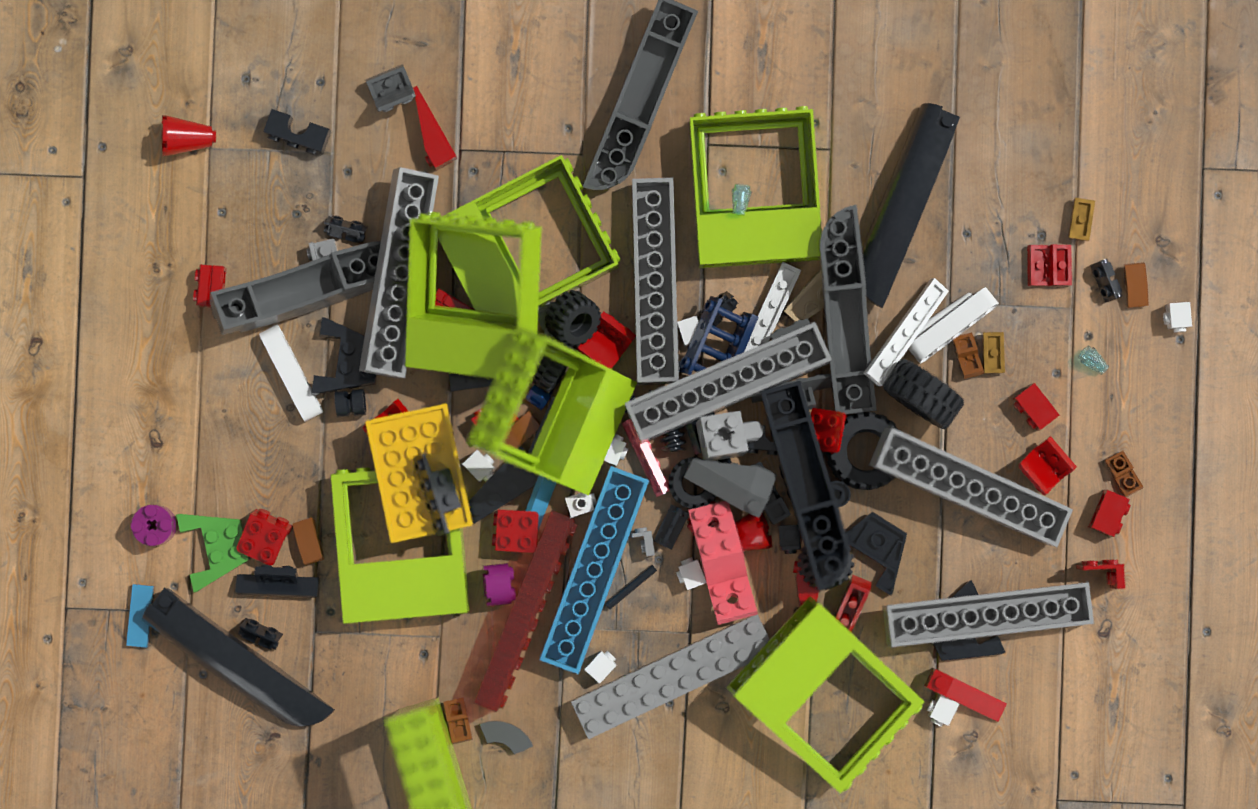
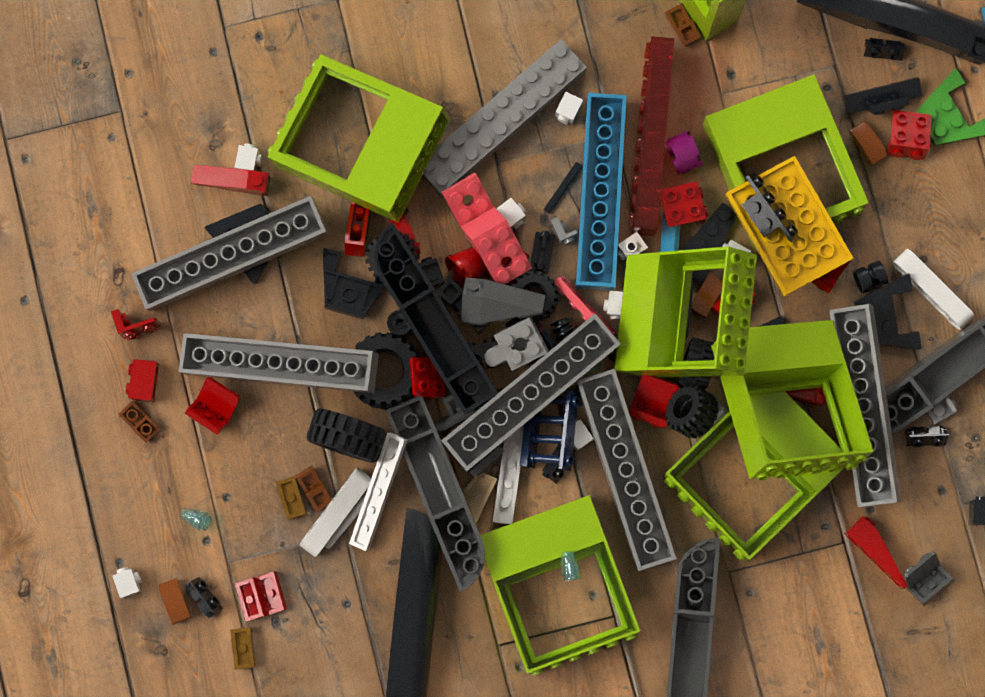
camera: 165 degrees right, 5 degrees down
(507, 734) = (634, 25): dark grey tile -> none
(538, 397) = (700, 332): blue tile -> none
(1035, 407) = (237, 458): red brick -> none

